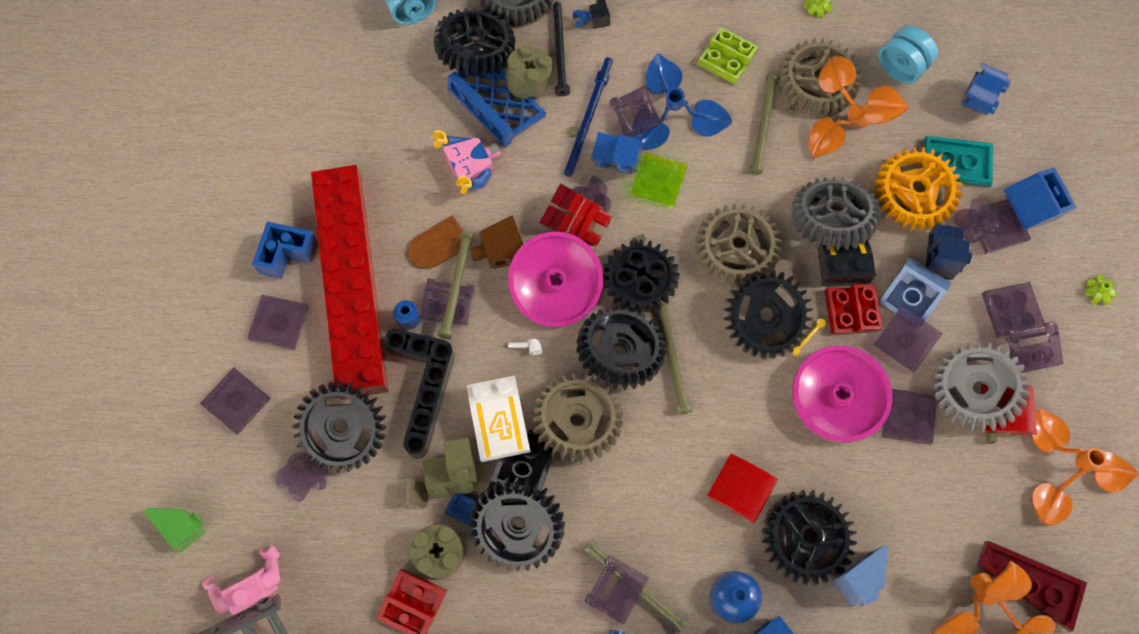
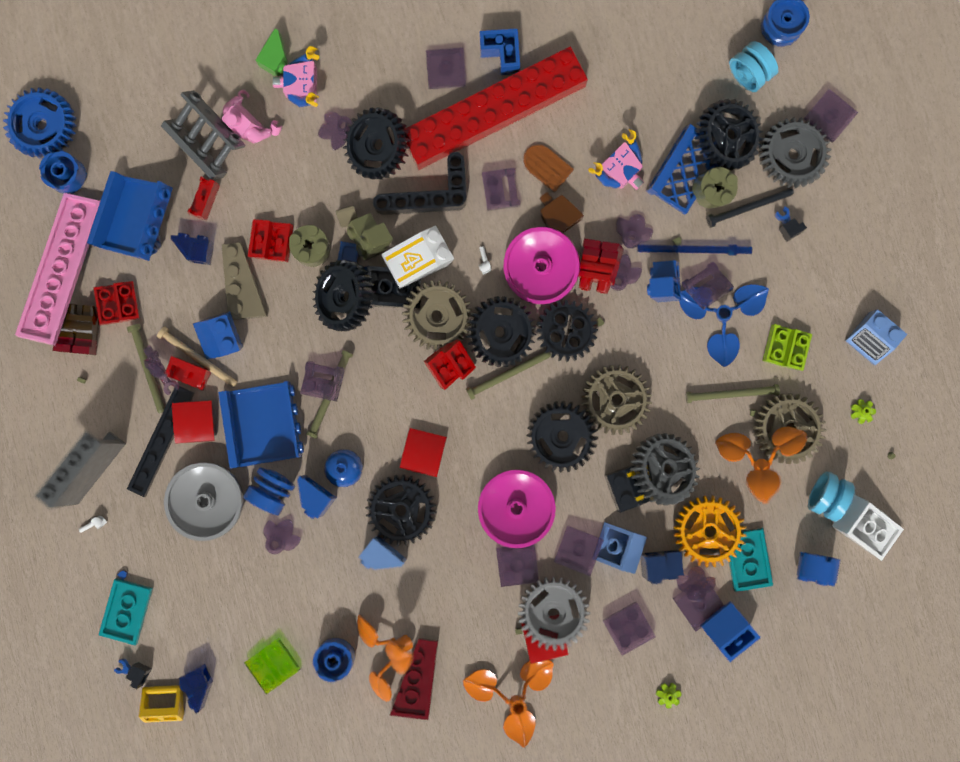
camera: 75 degrees right, 15 degrees up
(222, 500) = (300, 79): none -> torso
(235, 401) = (376, 60): clear purple plate -> none
(406, 315) = (475, 167): blue brick -> none
(445, 331) = (514, 191): olive bar -> none
(544, 170) = (633, 228): none -> clear purple plate
(641, 420) = (450, 364): none -> red slope
(659, 179) = (655, 322): clear neon green slope -> none
(820, 324) = (572, 480): yellow hinge -> none
(853, 309) = (591, 503): red slope -> none
(951, 30) = (868, 527): none -> white slope
(1036, 355) = (595, 653): clear purple plate -> none

